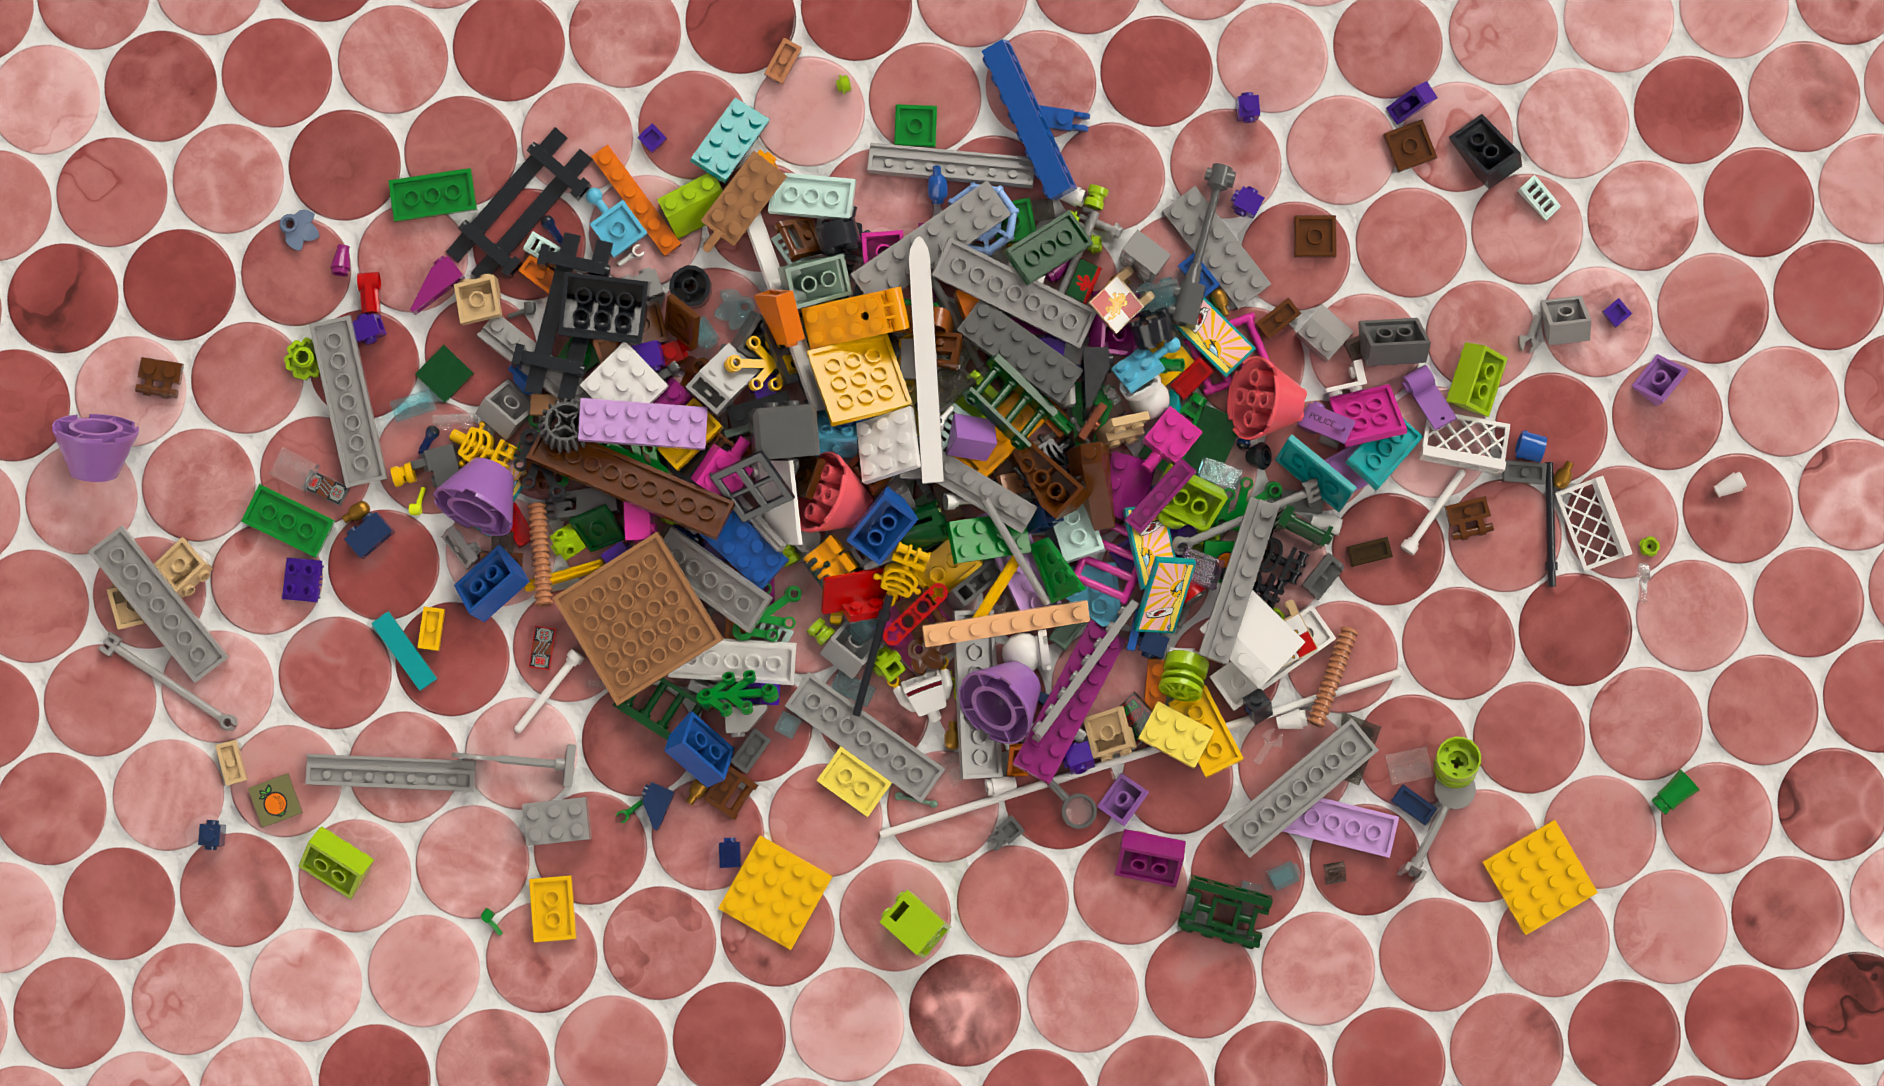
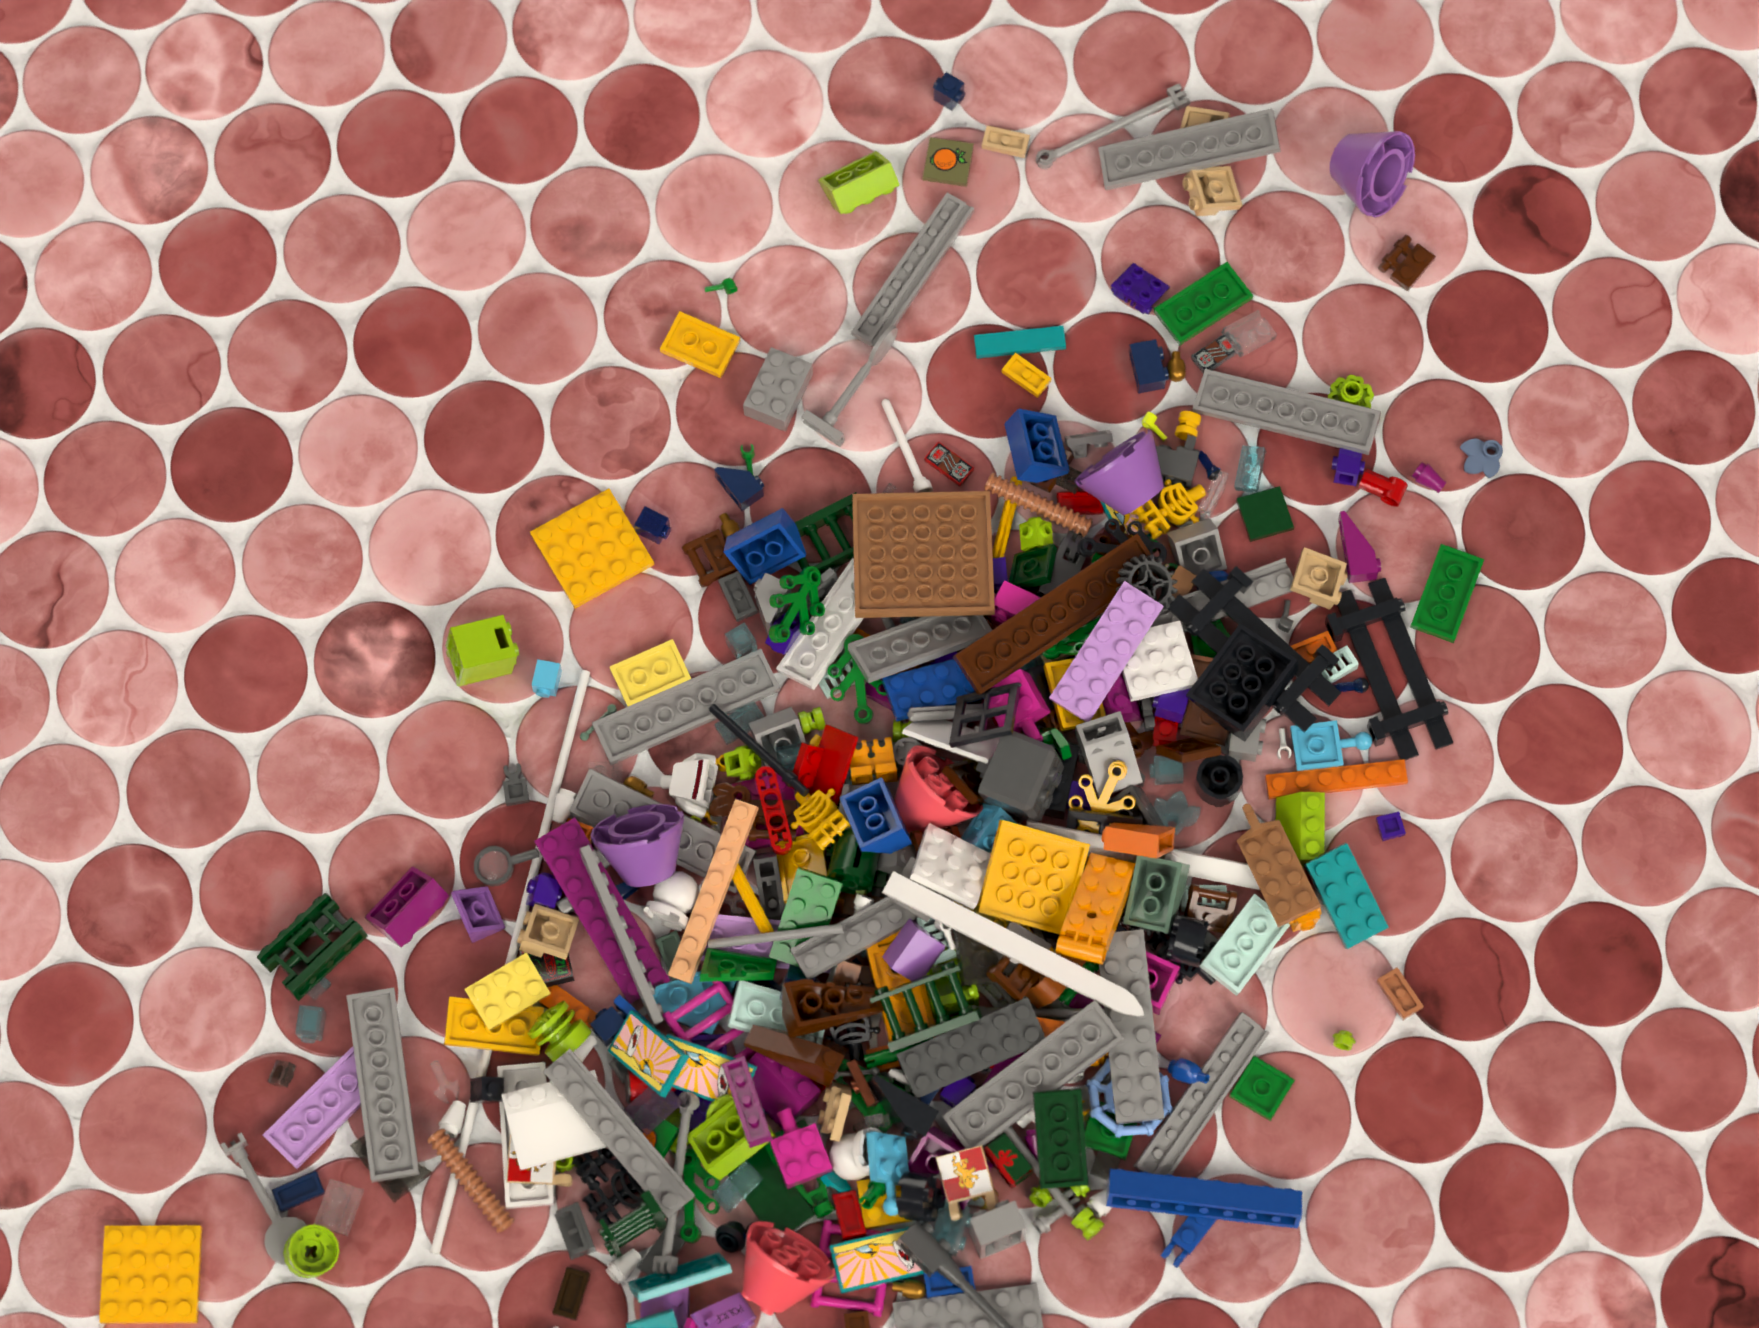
camera: 125 degrees right, 15 degrees down
(732, 434) = (1052, 735): none -> green slope
(905, 861) = (546, 678): none -> medium azure brick

